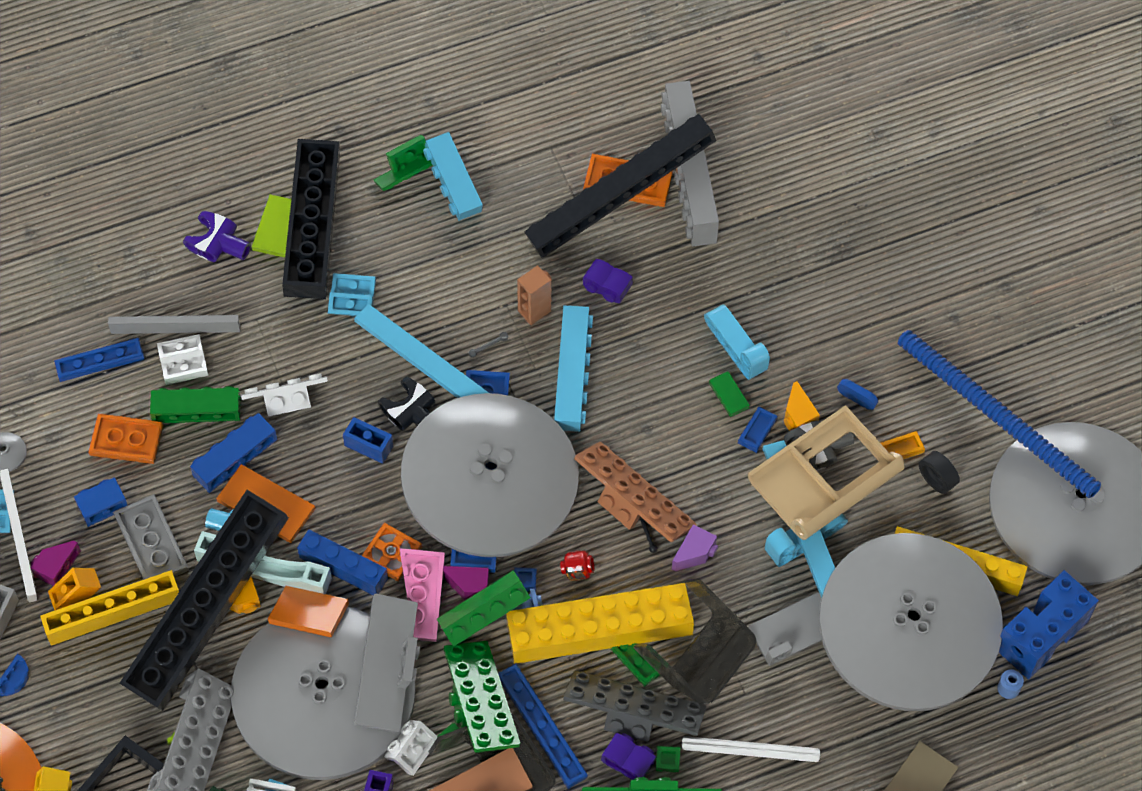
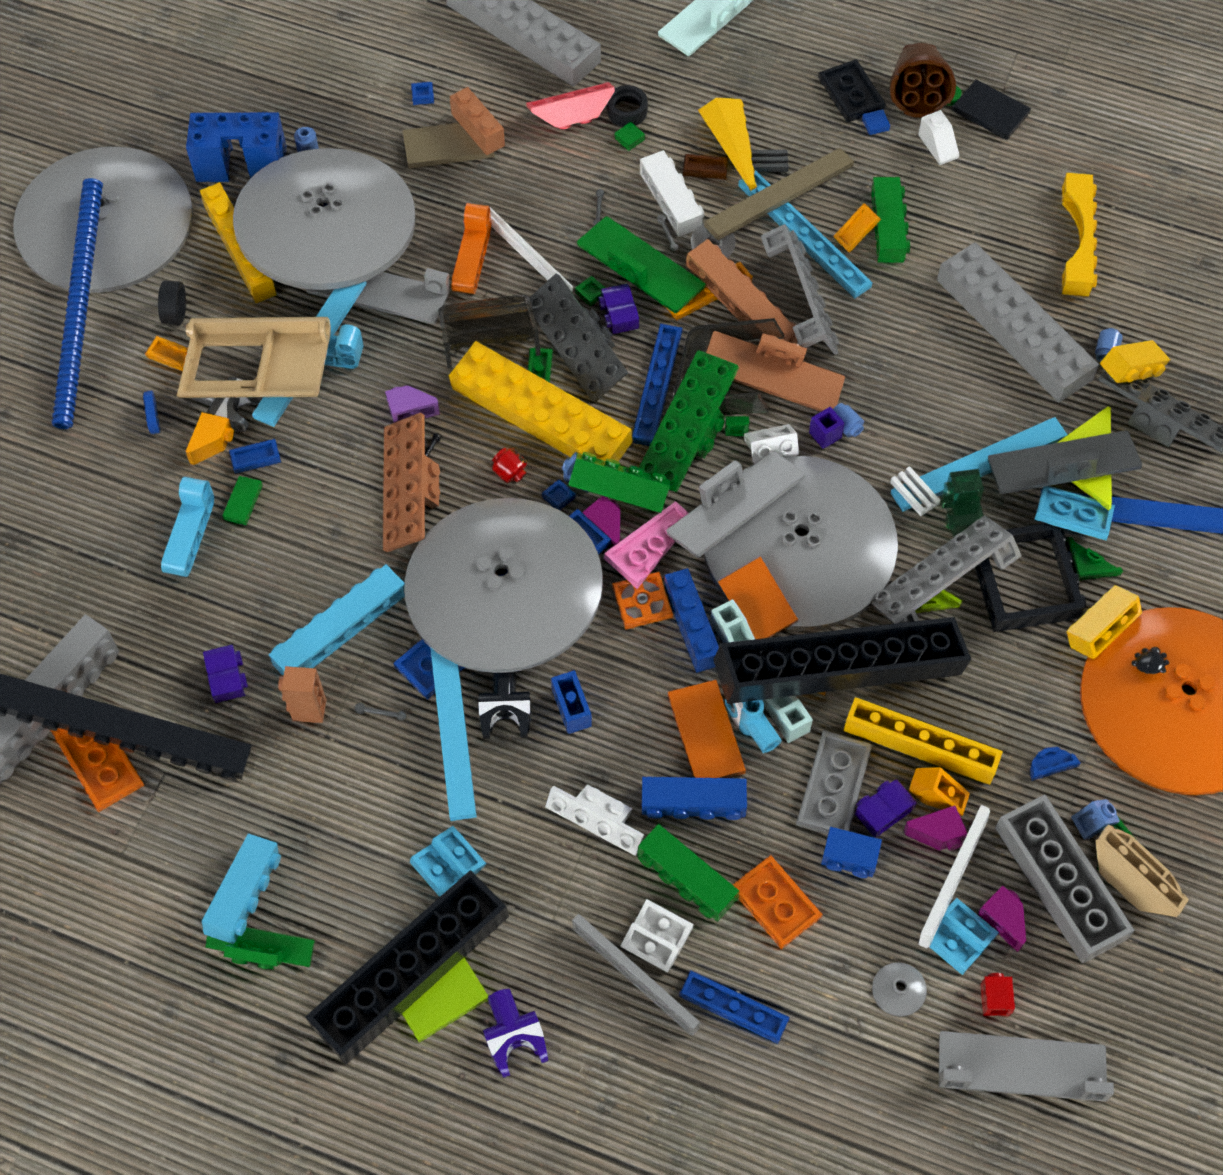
camera: 135 degrees left, 0 degrees up
(102, 548) = (885, 807): none -> dark purple brick
(798, 723) = (472, 248): none -> orange beam

